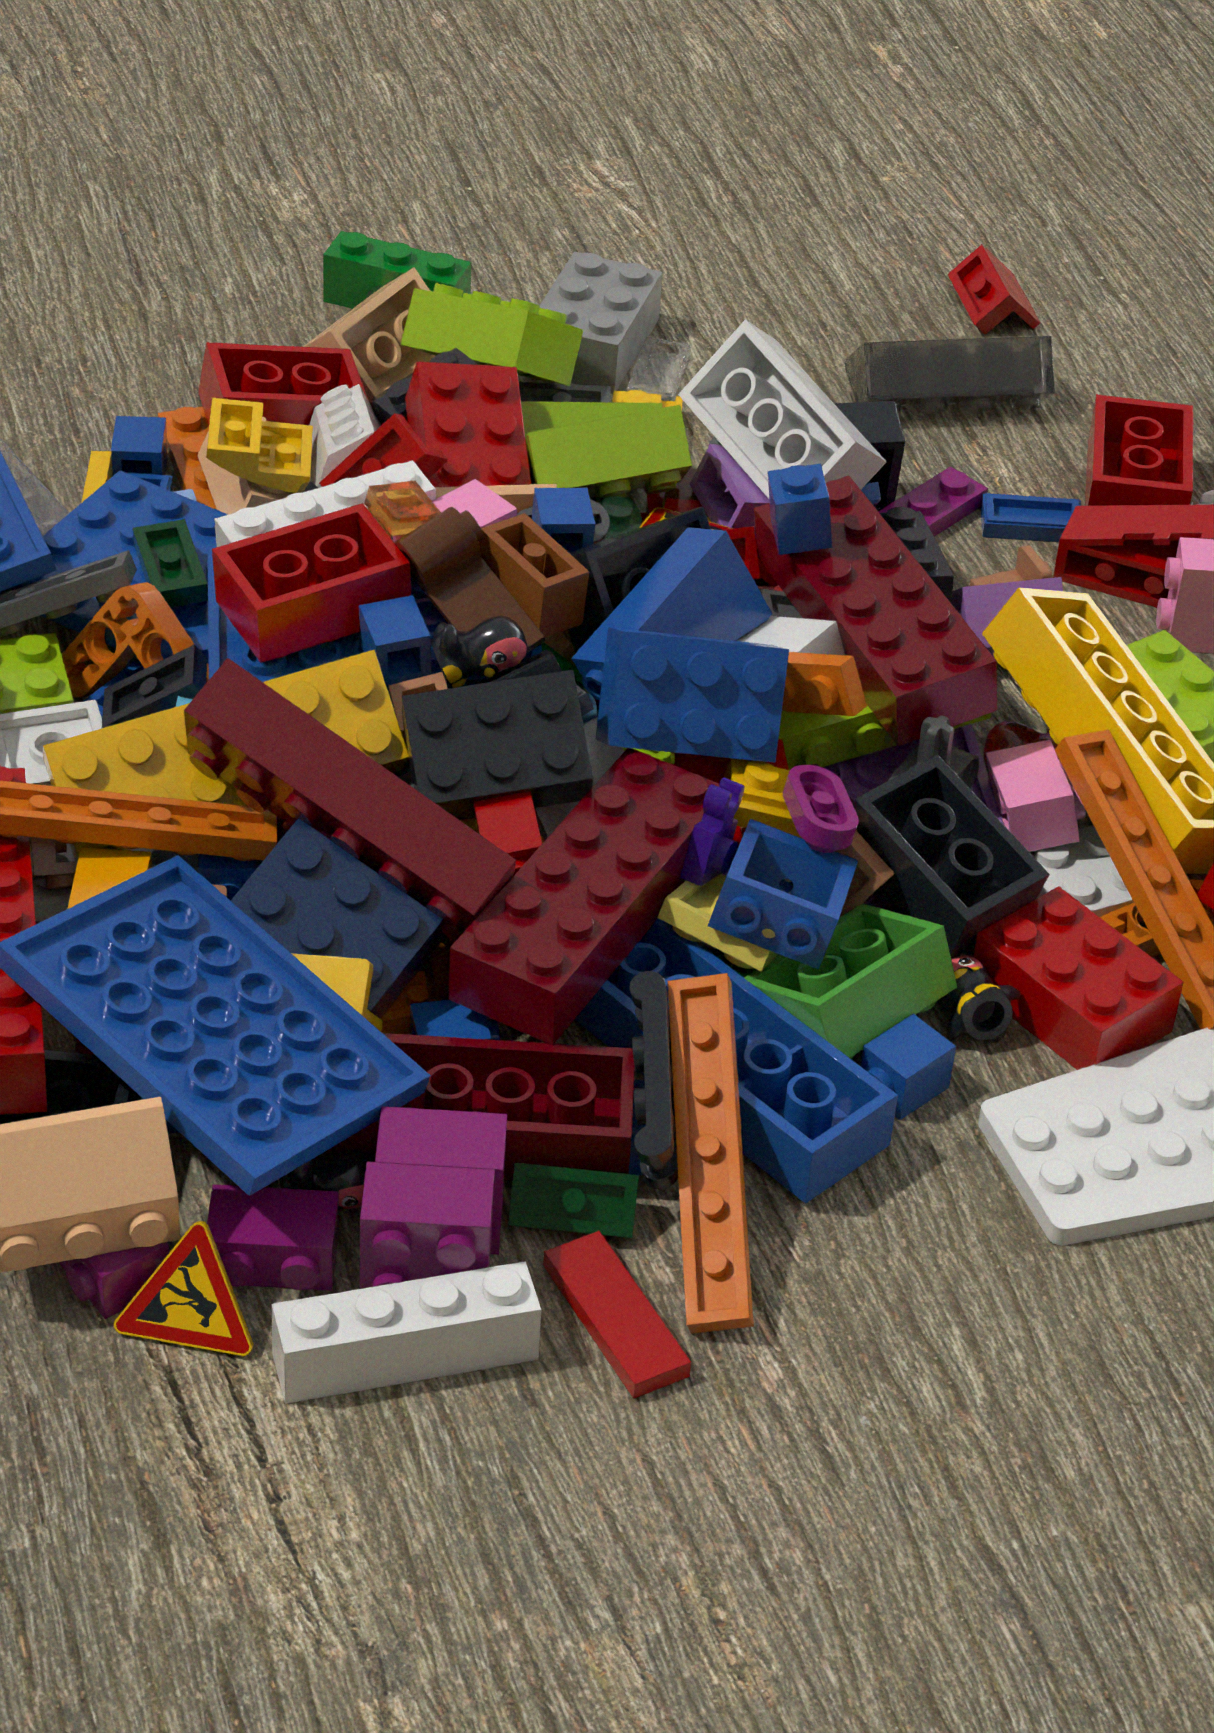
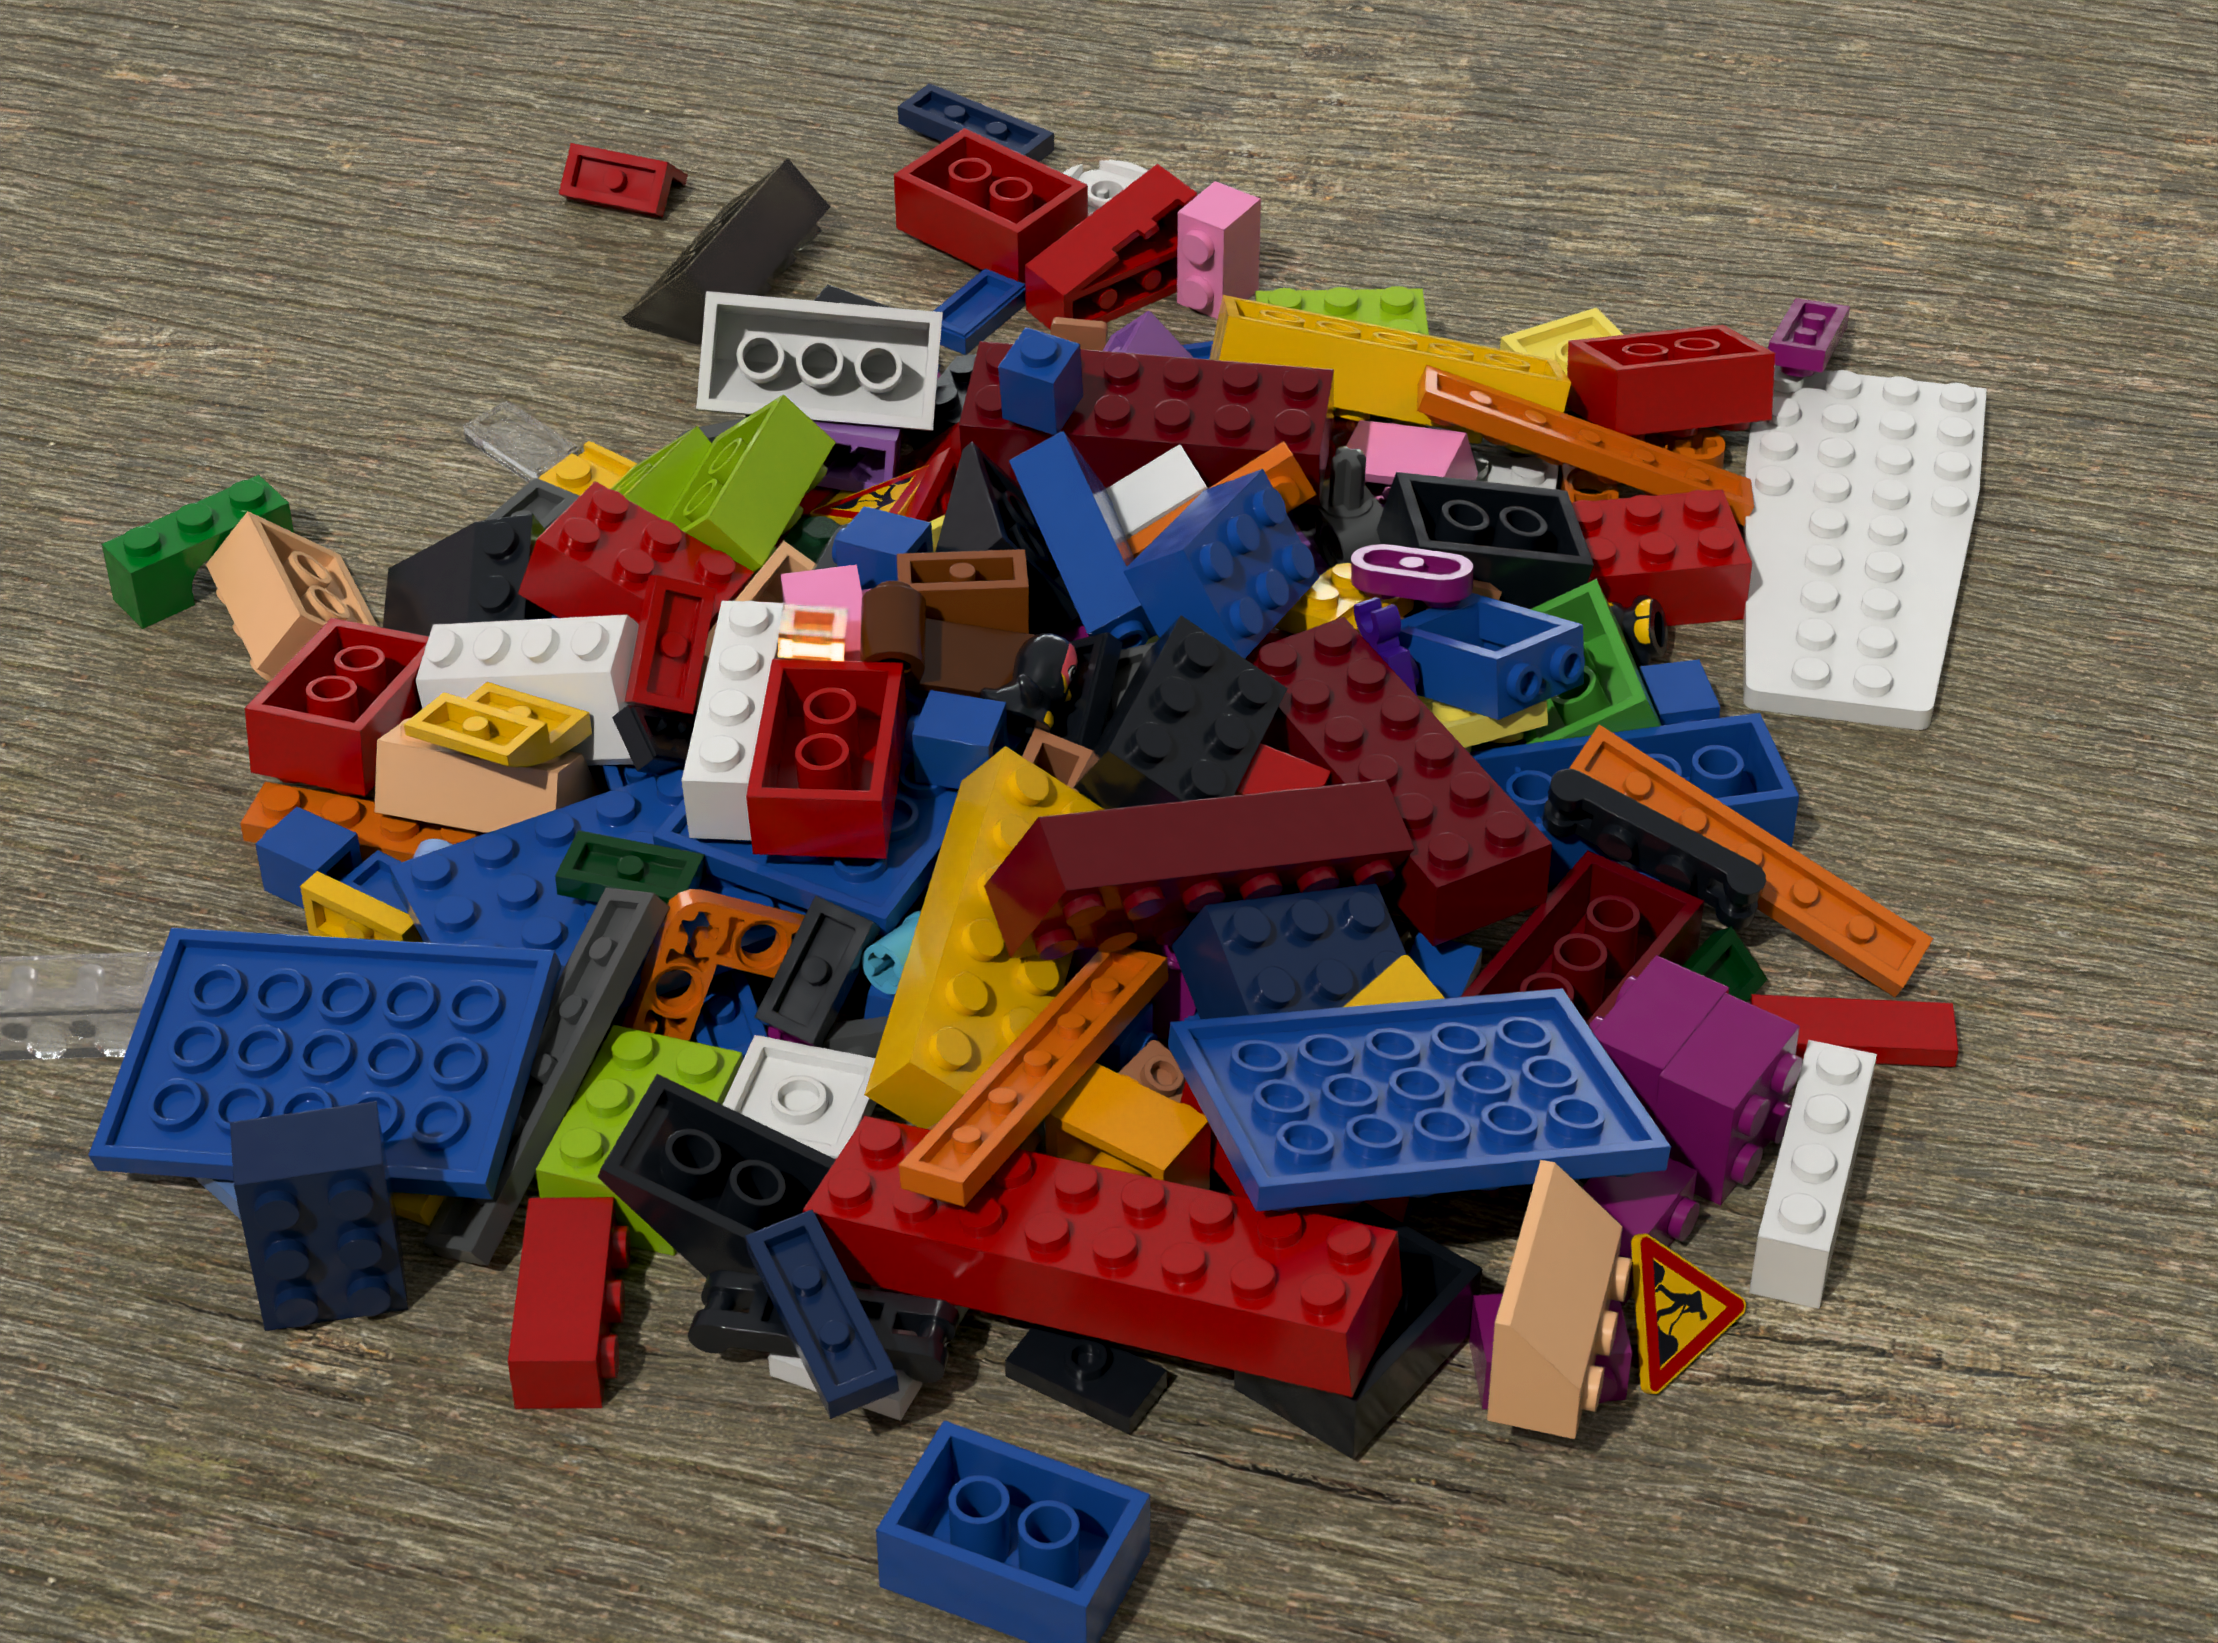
camera: 55 degrees left, 0 degrees up
(494, 332) = (416, 506): lime brick -> none
(614, 307) = (416, 444): light grey brick -> none

